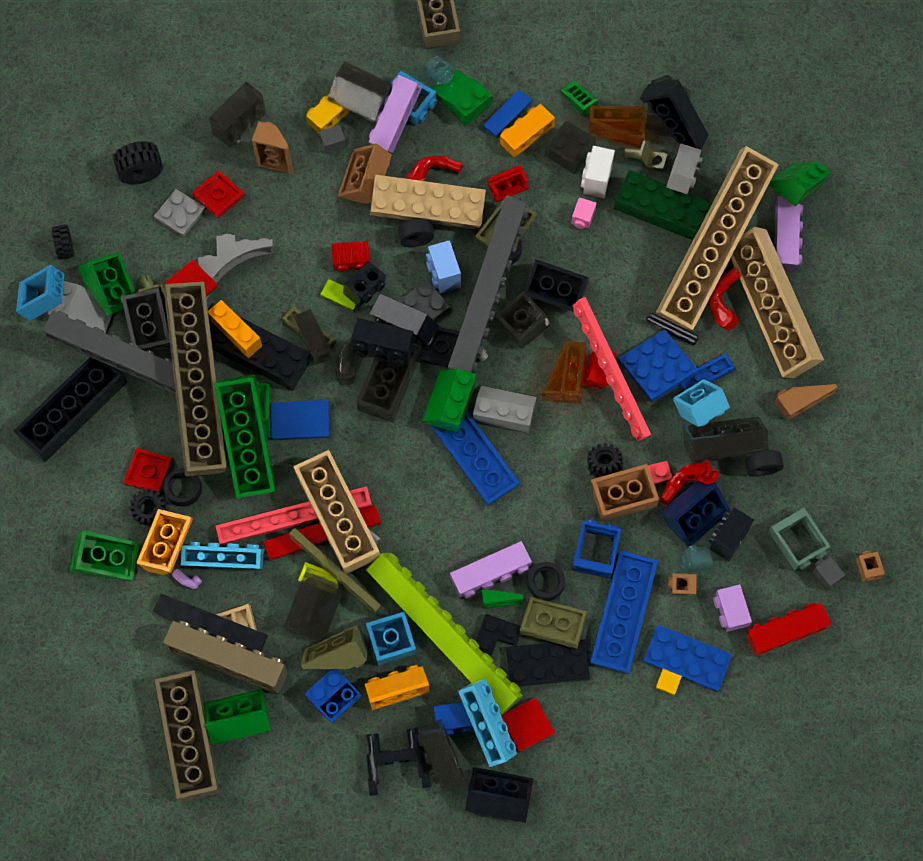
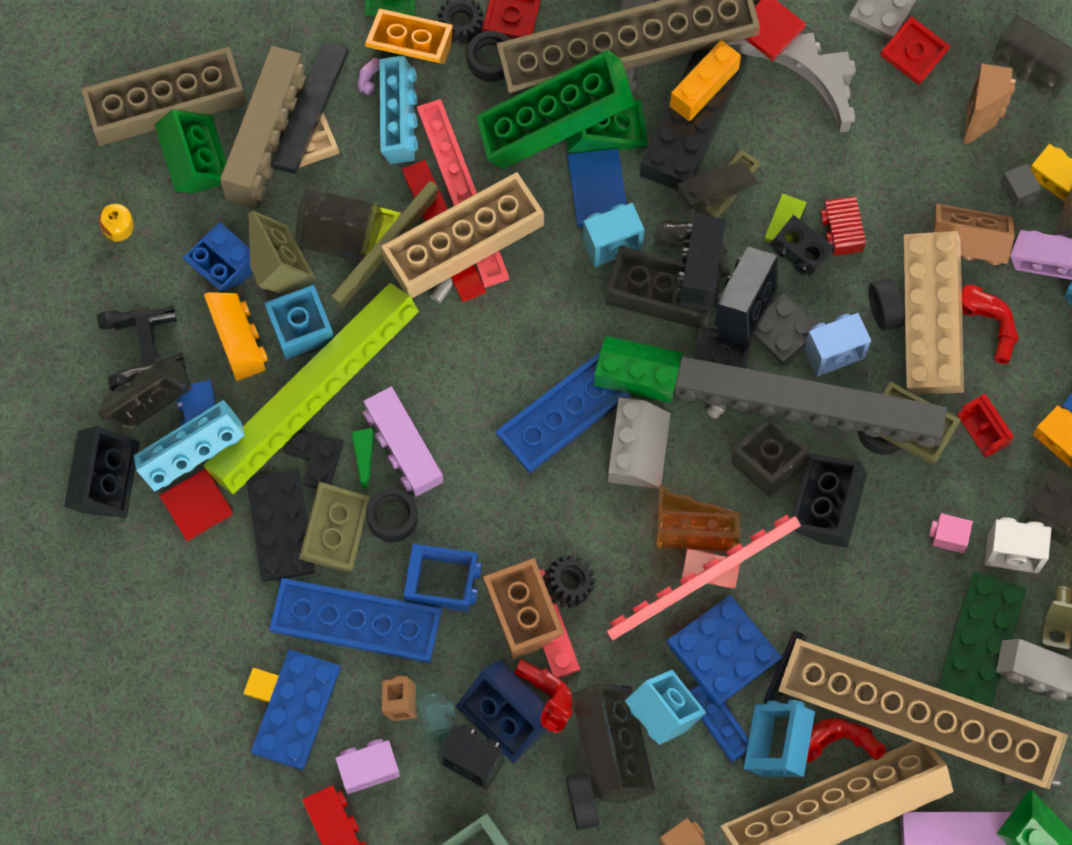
camera: 85 degrees right, 0 degrees up
(299, 779) = (116, 222): none -> yellow head
(343, 408) = (610, 230): none -> medium azure brick
(728, 318) = (796, 742): none -> dark azure window

